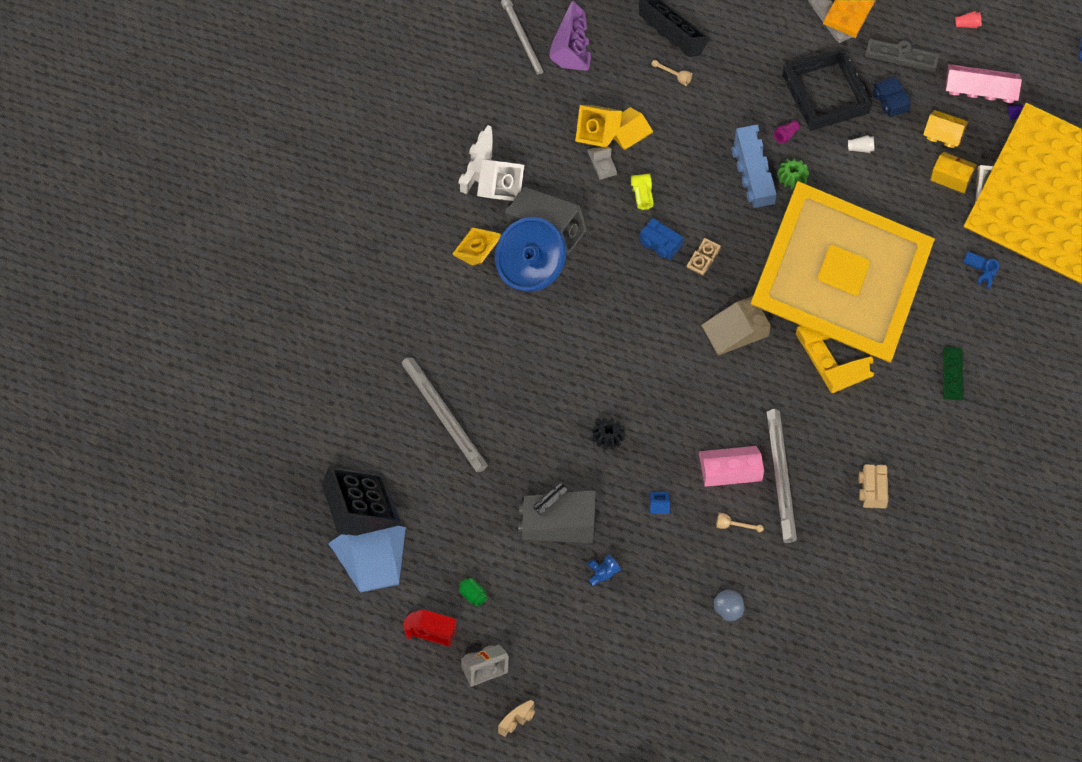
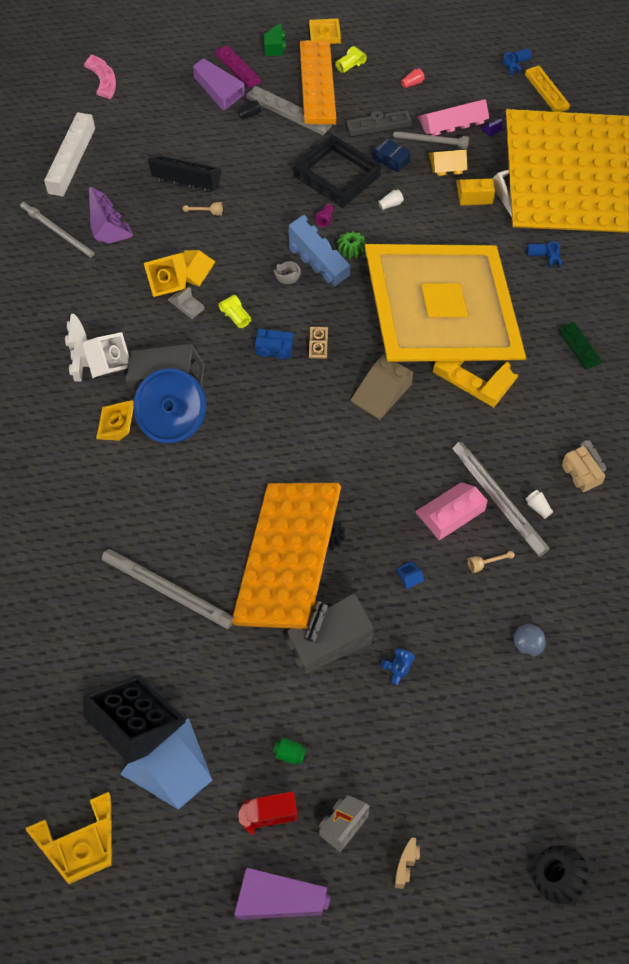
camera: 25 degrees left, 0 degrees up
(270, 584) = (83, 850): none -> yellow wing
(402, 691) = (277, 897): none -> medium lavender slope
(561, 433) = (287, 555): none -> light orange plate
(717, 170) = (287, 272): none -> light grey hair
(813, 496) = (539, 503): none -> white cone
(893, 480) = (589, 446): none -> light grey axle
(974, 114) = (461, 142): none -> light grey piece

